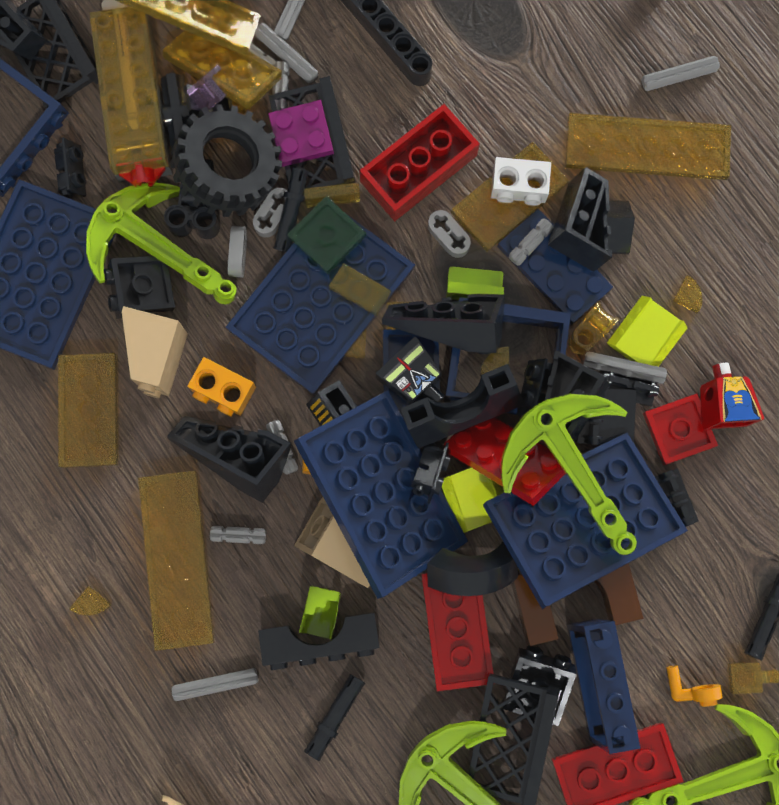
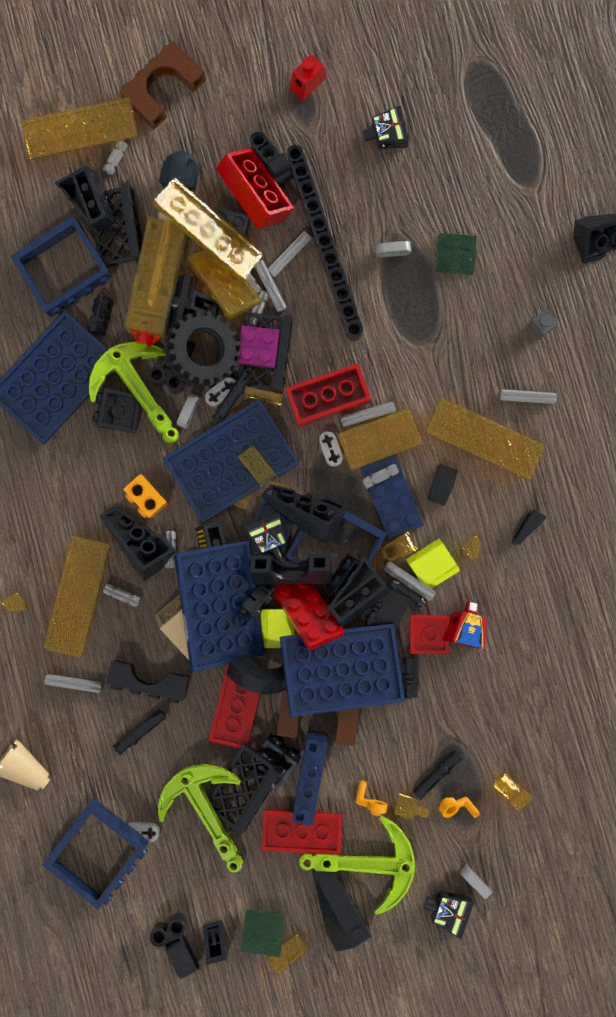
camera: 25 degrees right, 5 degrees up
(87, 410) = (55, 479): clear yellow plate -> none
(153, 350) = (109, 458): tan slope -> none
(206, 91) = (205, 299): clear purple panel -> none
(320, 612) = (154, 663): lime piece -> none
(326, 235) = (249, 422): clear green plate -> none
(473, 281) = (334, 488): lime panel -> none
(478, 171) = (367, 414): none -> light grey axle
(495, 360) = (327, 548): clear yellow tile -> none
(520, 173) = (391, 428): white brick -> none
(558, 440) = (348, 599): lime piece -> none
(582, 221) = (418, 475): black wedge -> none
(752, 234) = (529, 524): none -> black slope

